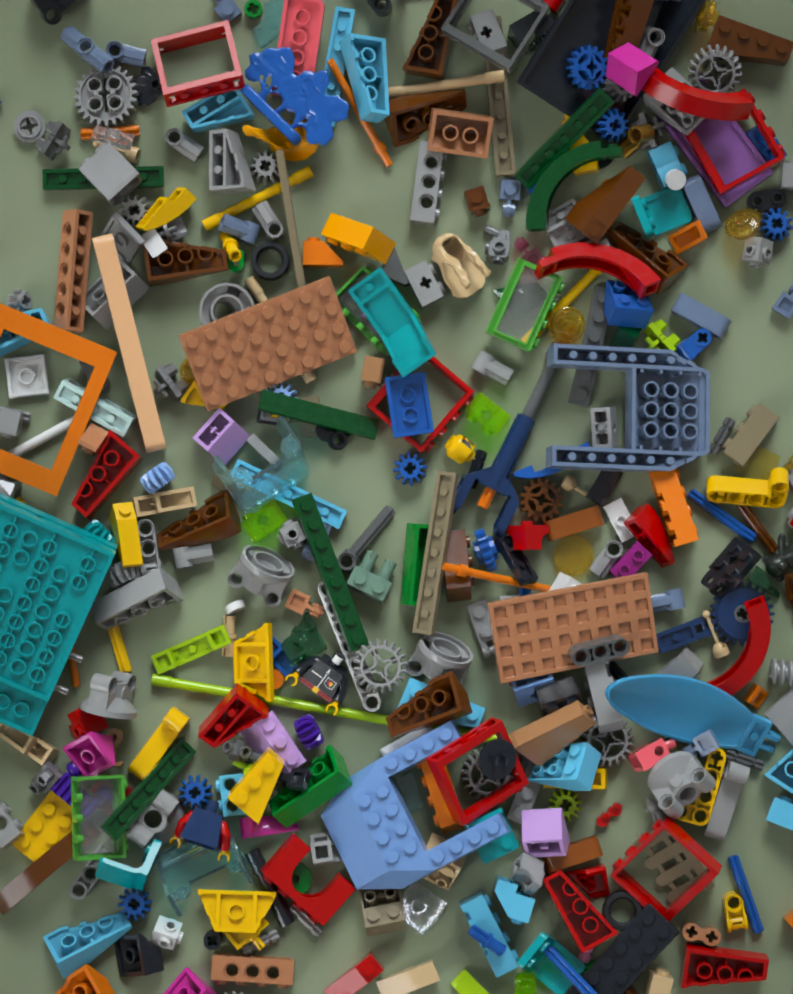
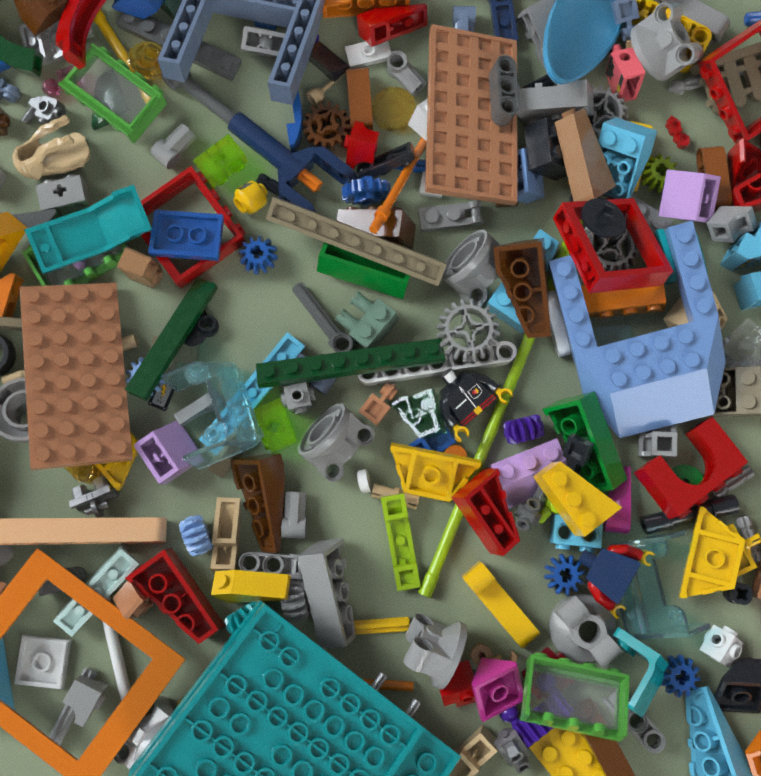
camera: 75 degrees left, 5 degrees down
(147, 789) = (555, 632): dark green plate -> none
(630, 561) = (415, 47): magenta brick -> none

